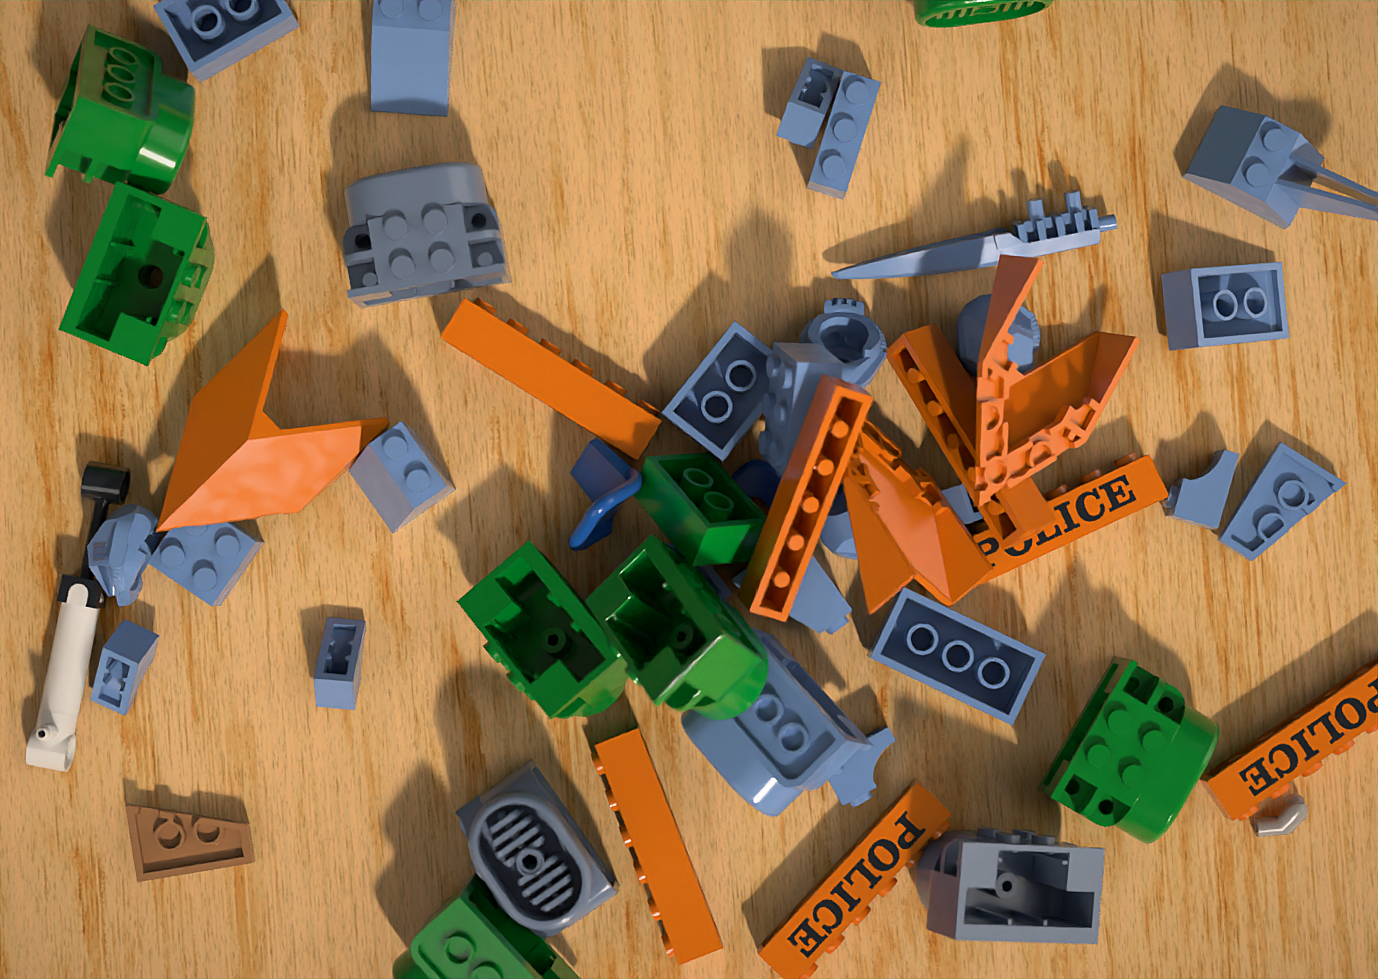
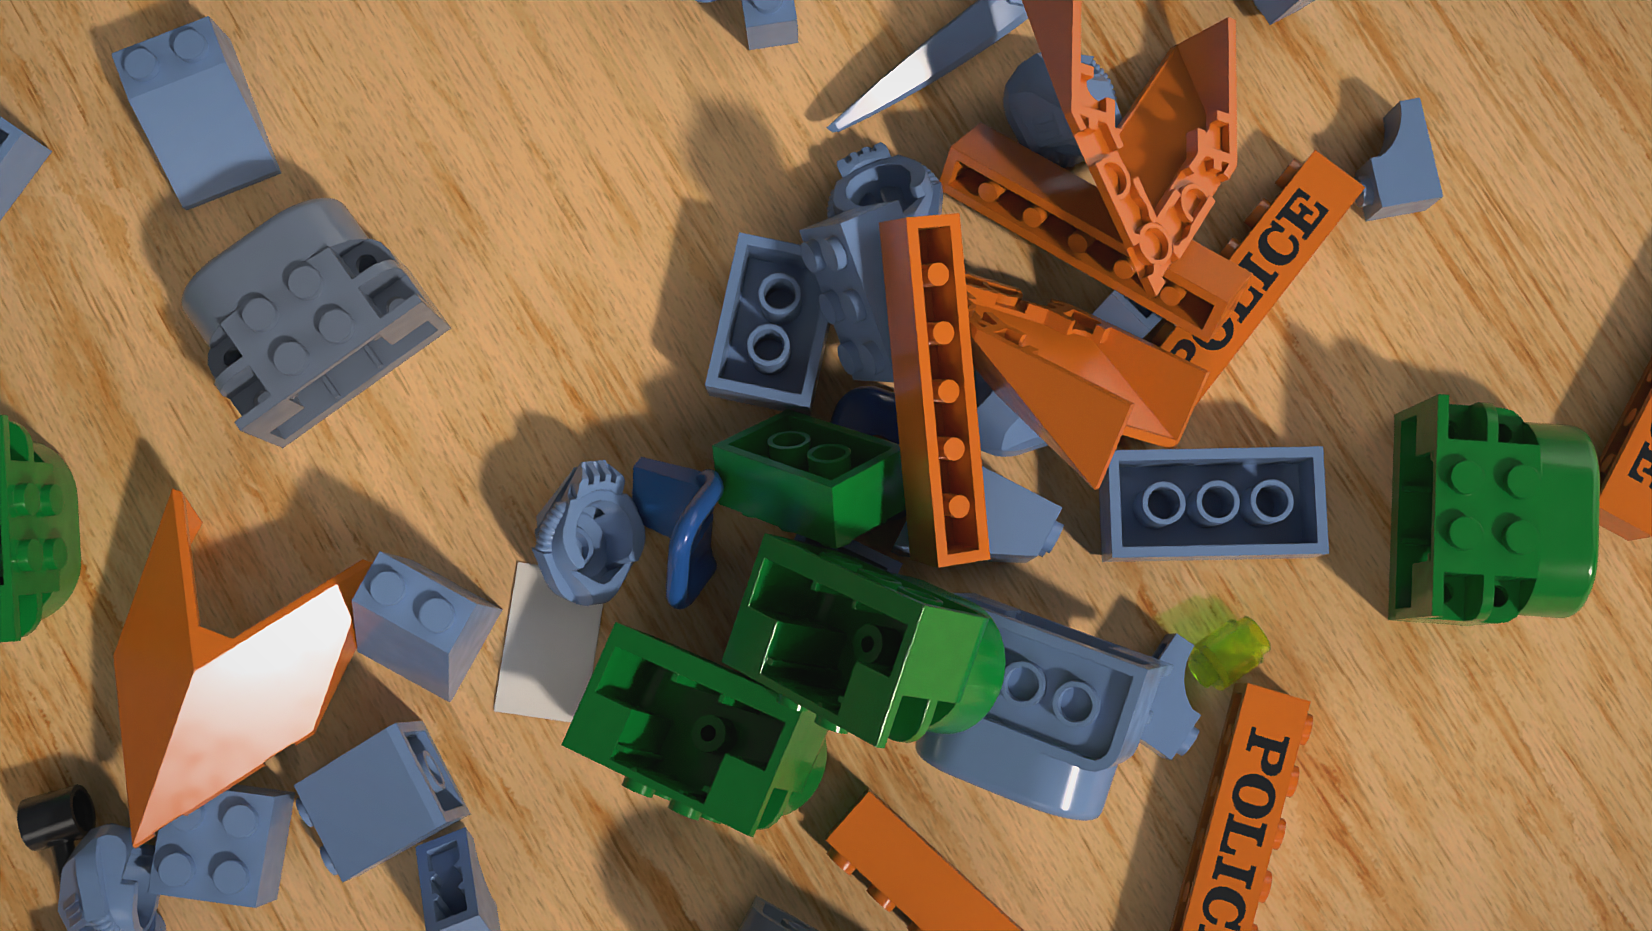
camera: 25 degrees left, 5 degrees down
(319, 576) = (379, 799): none -> medium blue slope
(477, 527) = (545, 650): none -> white sticker
(537, 472) = (588, 535): none -> medium blue helmet
(552, 379) = (552, 416): orange brick -> none
(917, 757) = (1228, 653): none -> clear neon green brick
(1011, 887) = (1435, 758): sand blue brick -> none
(1276, 500) = (1487, 135): medium blue wing -> none

